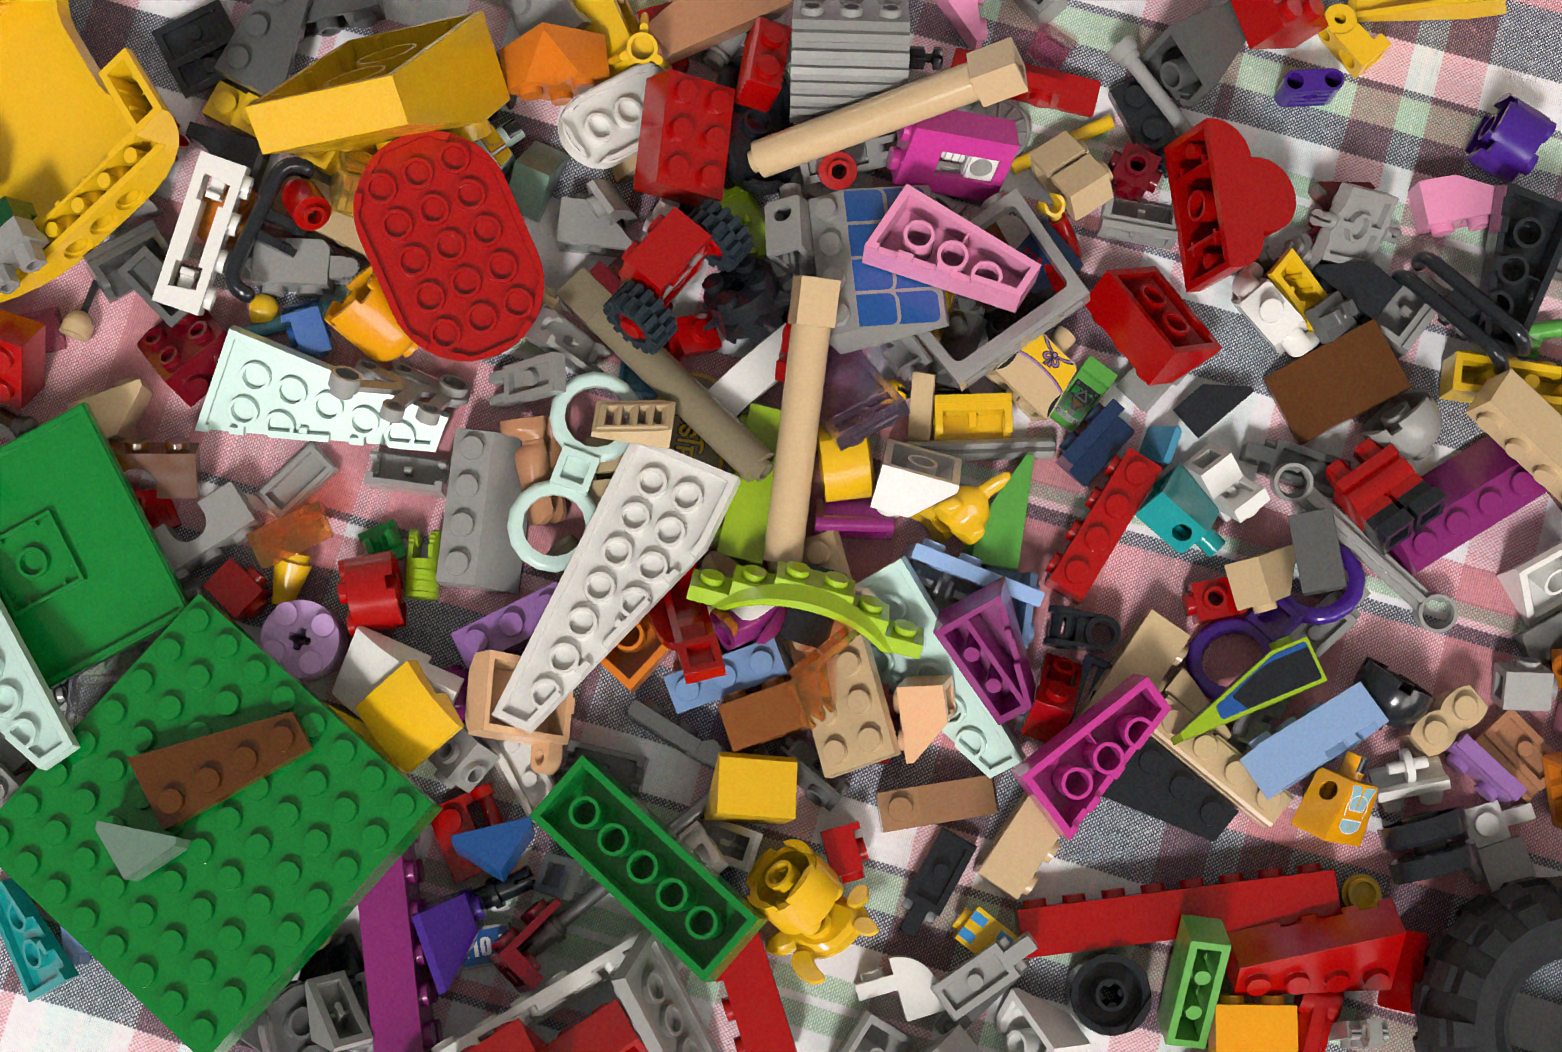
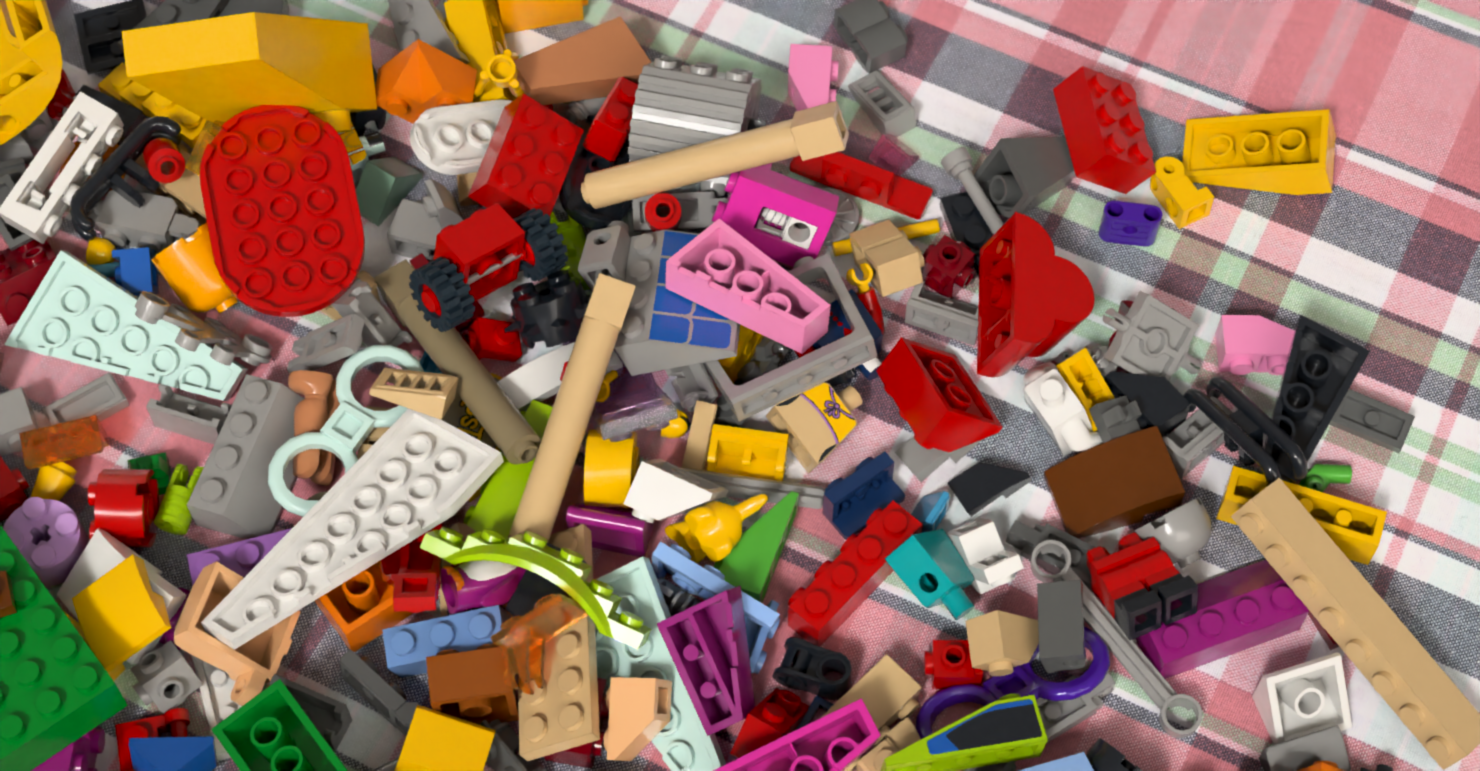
camera: 10 degrees right, 20 degrees down
(1083, 394) = (866, 442): leg -> none
(1509, 139) = (1317, 291): dark purple brick -> none

